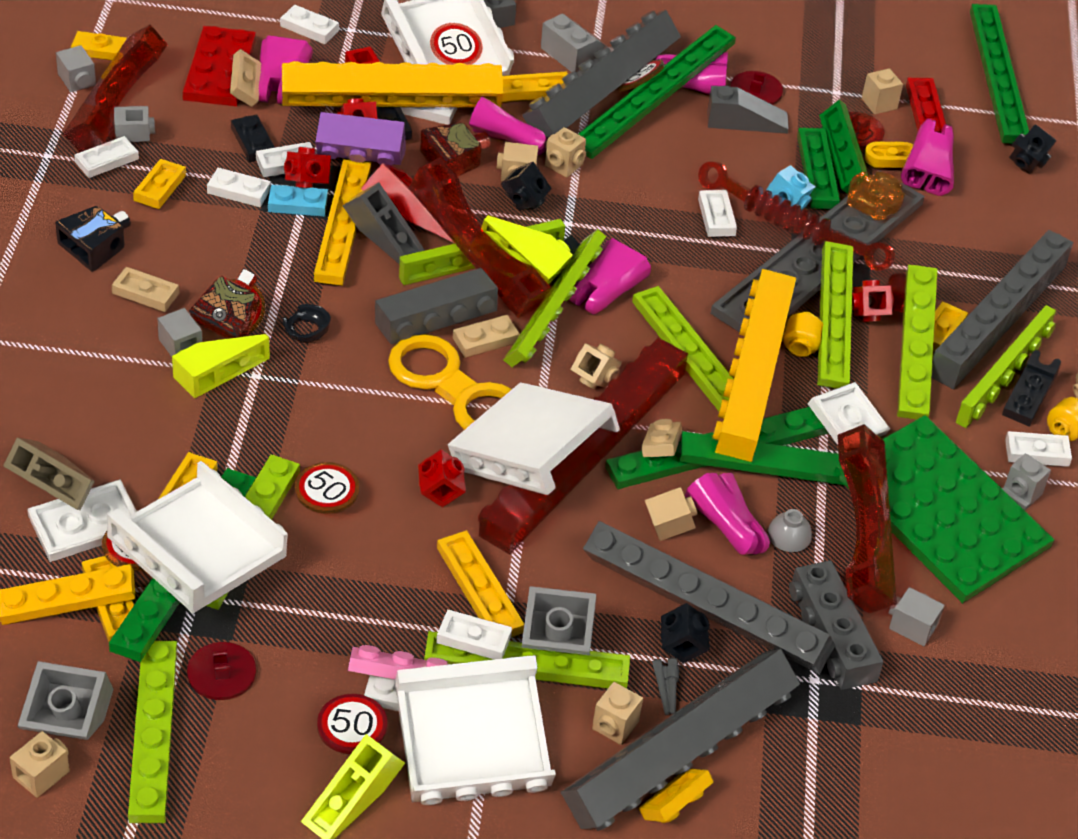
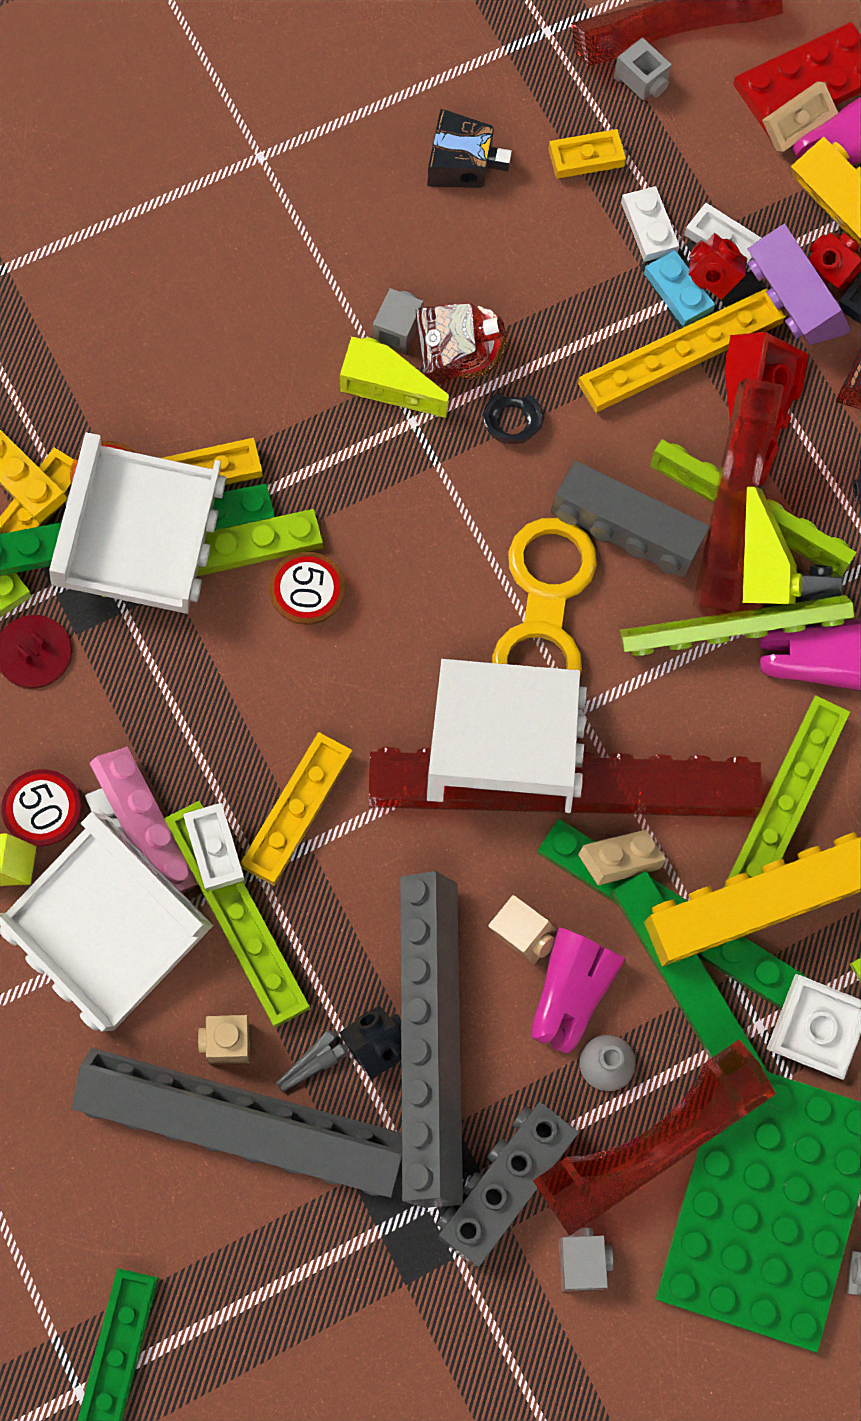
camera: 55 degrees right, 25 degrees up
(49, 471) = (130, 339): dark tan slope -> none
(71, 531) = (115, 408): white tile -> none
(106, 157) = (582, 82): white plate -> none
(145, 289) = (434, 248): tan plate -> none
(251, 135) = (733, 183): black plate -> none
(382, 222) = (698, 395): dark grey slope -> none
(441, 478) = (399, 682): red brick -> none
(485, 336) = (640, 591): tan plate -> none
(559, 620) = (287, 917): light grey slope -> none
(596, 365) = (672, 727): tan brick -> none
(675, 795) = (170, 1158): yellow plate -> none

